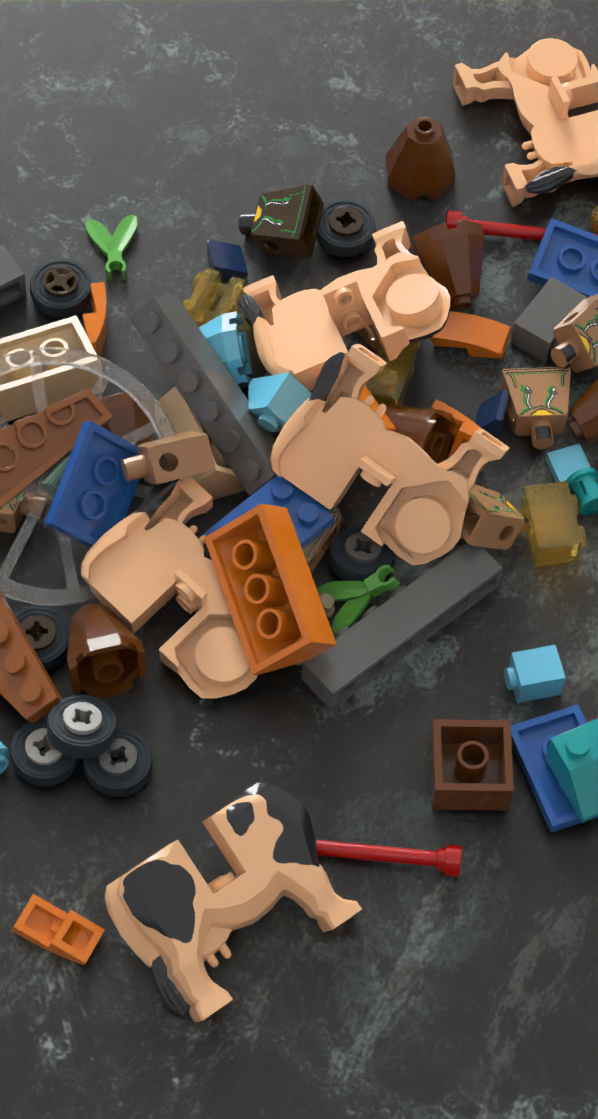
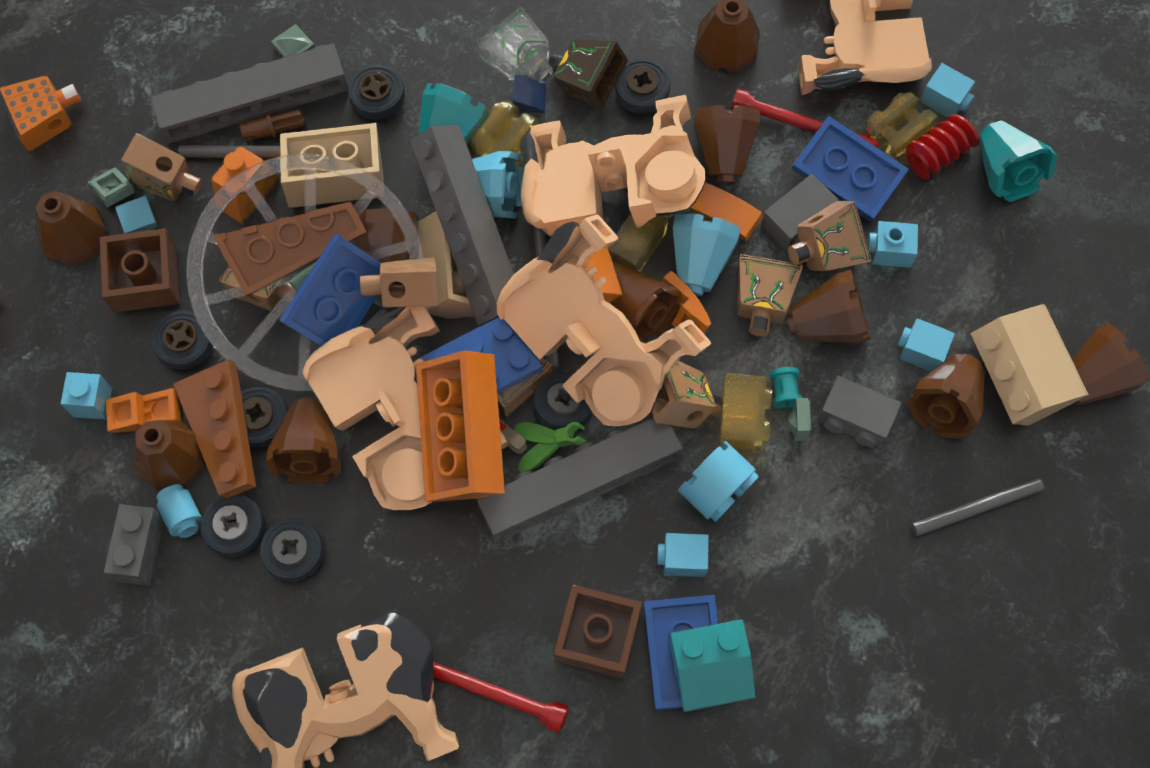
camera: 20 degrees right, 10 degrees up
(57, 931) = (195, 695): orange slope -> none
(81, 726) = (255, 524): black wheel -> none
(96, 323) = (396, 134): orange slope -> none
(113, 245) = (436, 59): bright green piece -> none
(146, 281) = (449, 106): none -> teal cone
(200, 214) = (516, 48): none -> clear torso
(275, 399) = (520, 243): medium azure slope -> none
(461, 370) = (702, 249): none -> medium azure cone
(492, 413) = (721, 295): dark blue slope -> none
(550, 592) = (717, 480): none -> medium azure brick
(566, 462) = (776, 354): medium azure tile -> none

